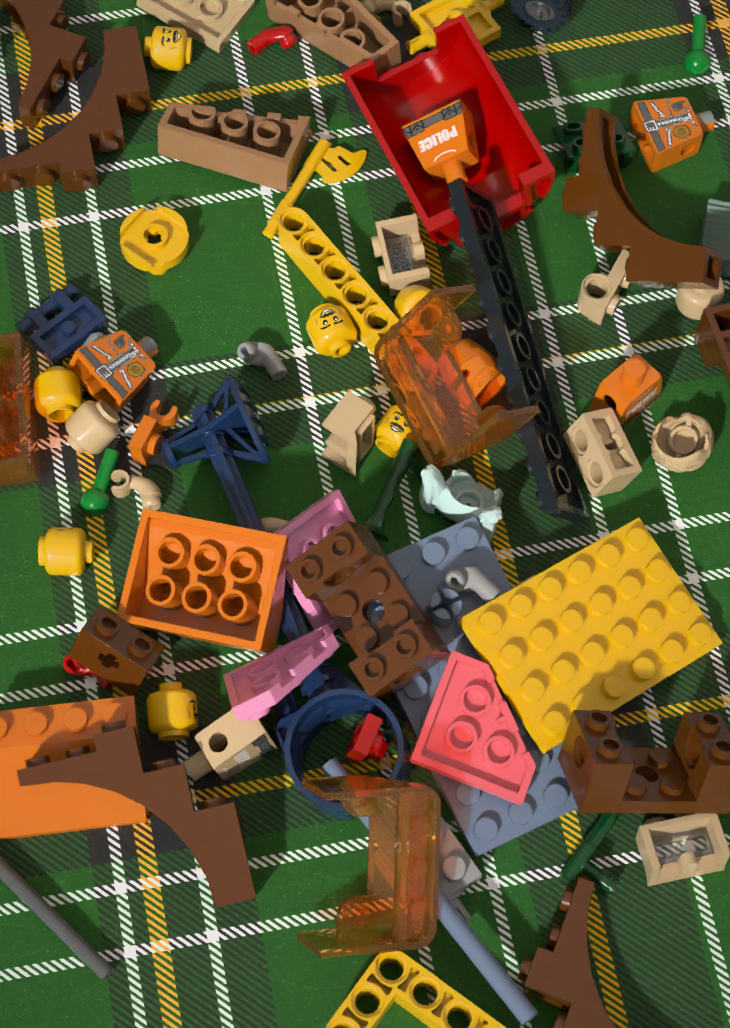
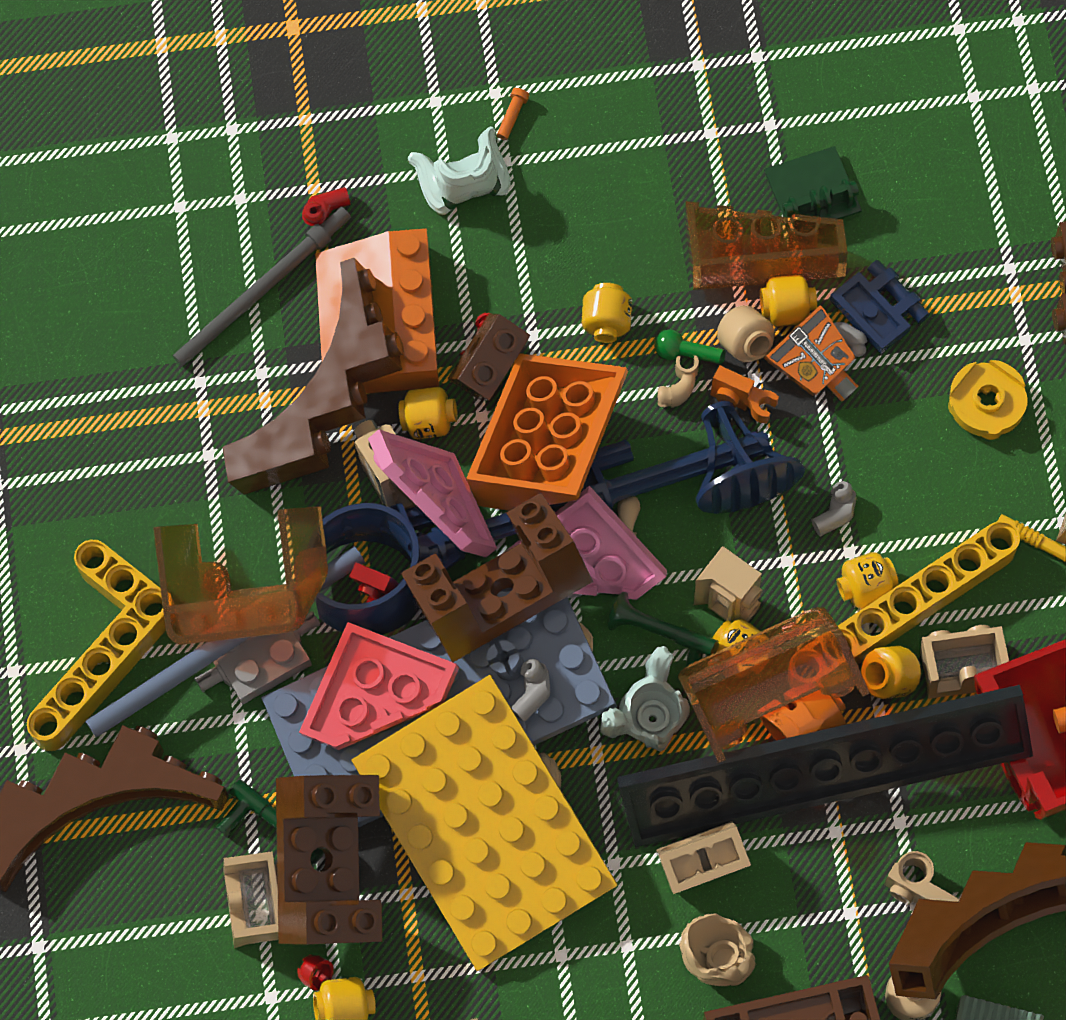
camera: 100 degrees right, 5 degrees up
(632, 387) = (780, 896): orange torso -> none

